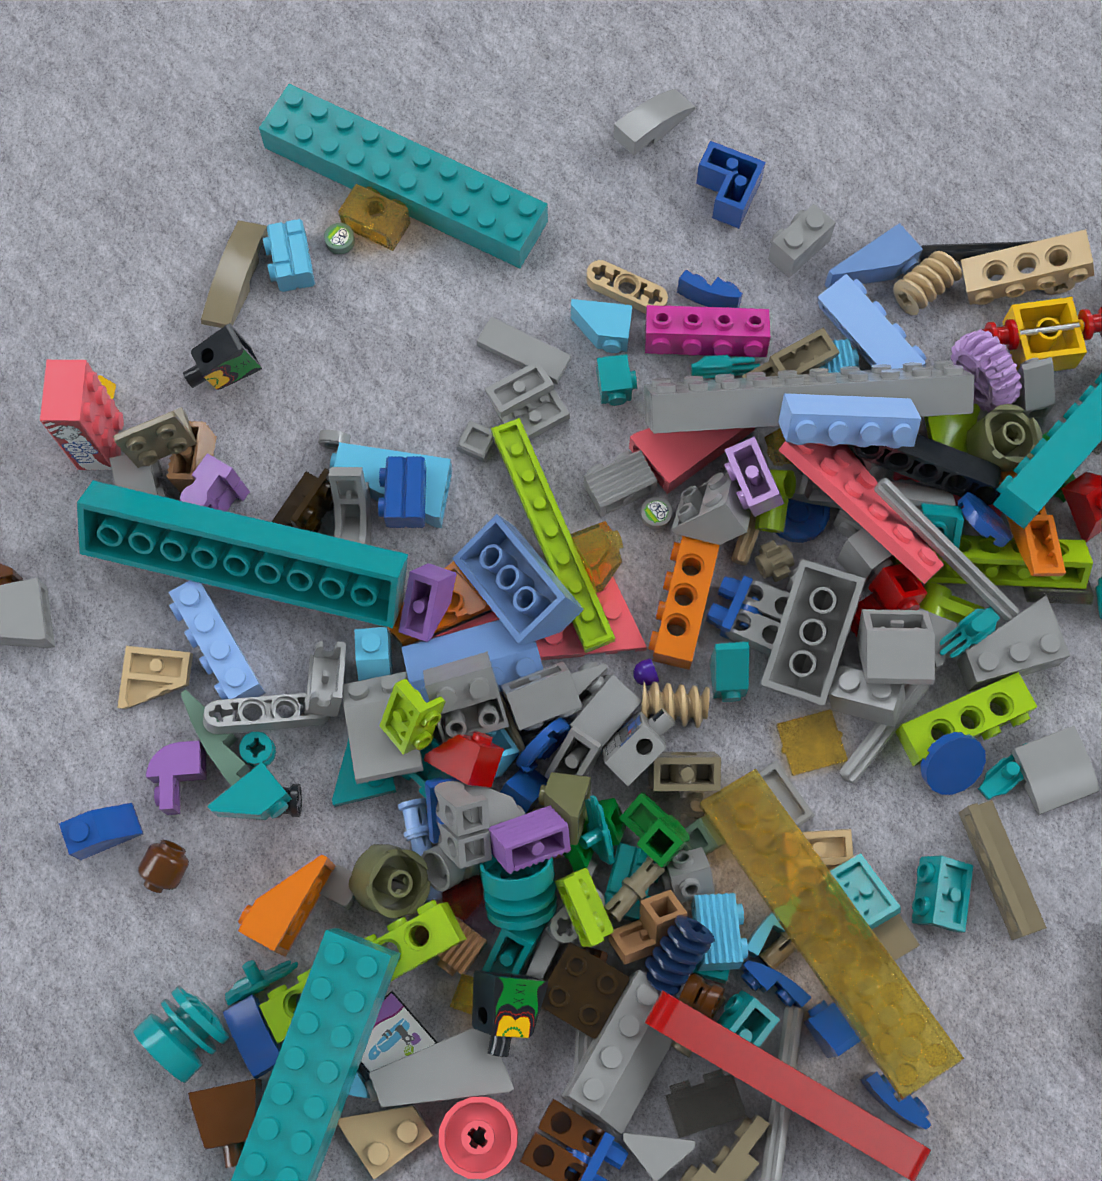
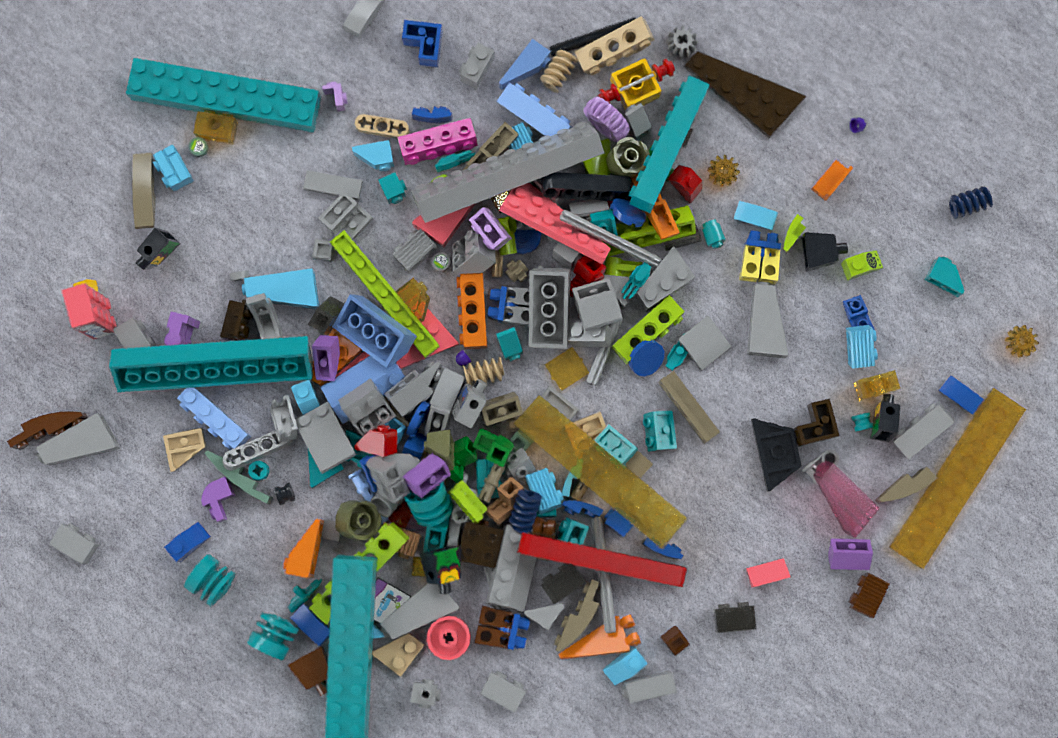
camera: 20 degrees left, 10 degrees up
(112, 903) = (207, 578): none -> teal wheel
(156, 438) = (137, 310): dark tan bracket -> none
(163, 866) = (229, 551): reddish brown head -> none
(185, 463) = (159, 311): medium nougat brick -> none
(252, 797) = (267, 498): teal slope -> none
(404, 492) = (292, 298): blue brick -> none
(409, 718) = (340, 431): lime bracket -> none
(446, 539) = (326, 316): none -> clear smoke slope
(573, 214) = (340, 97): none -> lavender bracket
(598, 833) = (463, 459): teal piece -> none
(849, 420) = (533, 182): light blue brick -> none

